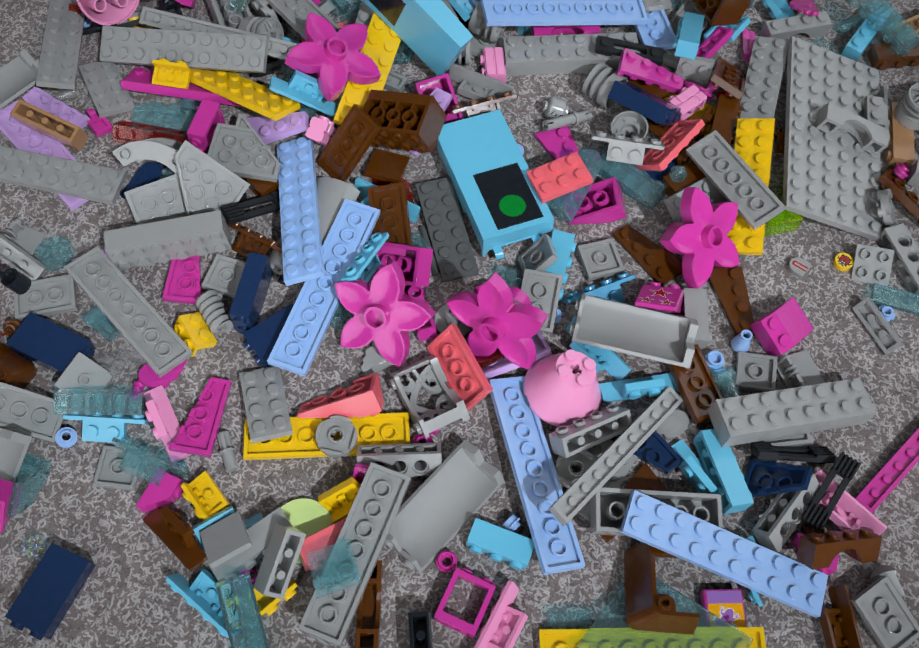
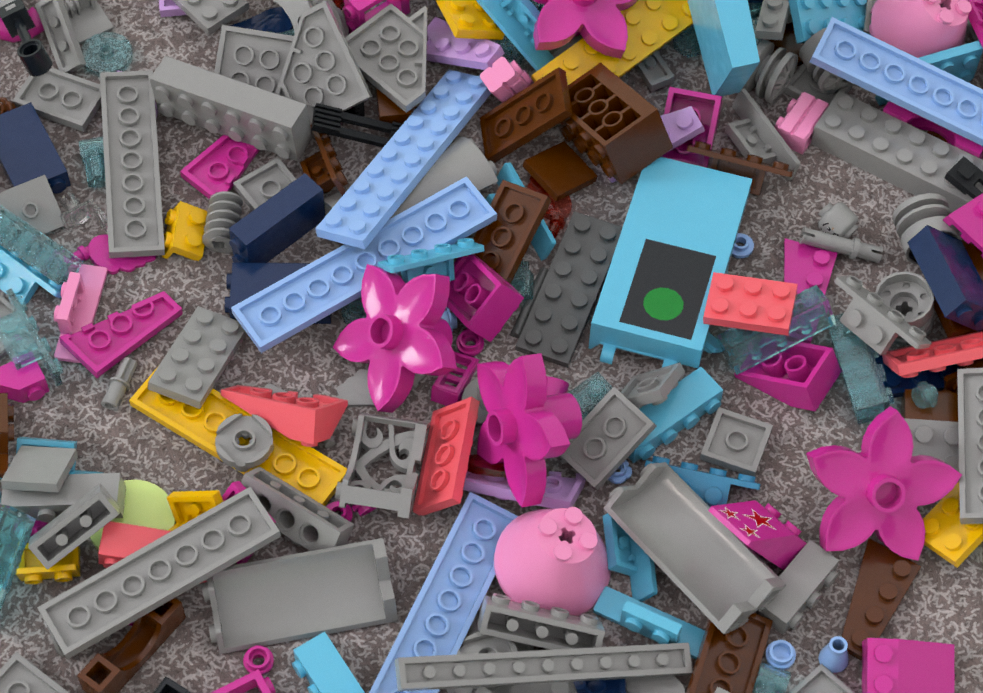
camera: 40 degrees right, 5 degrees down
(204, 496) = (58, 413): yellow bracket -> none
(333, 568) = (119, 569): clear light blue hinge -> none
(512, 523) = (365, 670): light blue plate -> none
(652, 258) = (805, 494): reddish brown wing -> none

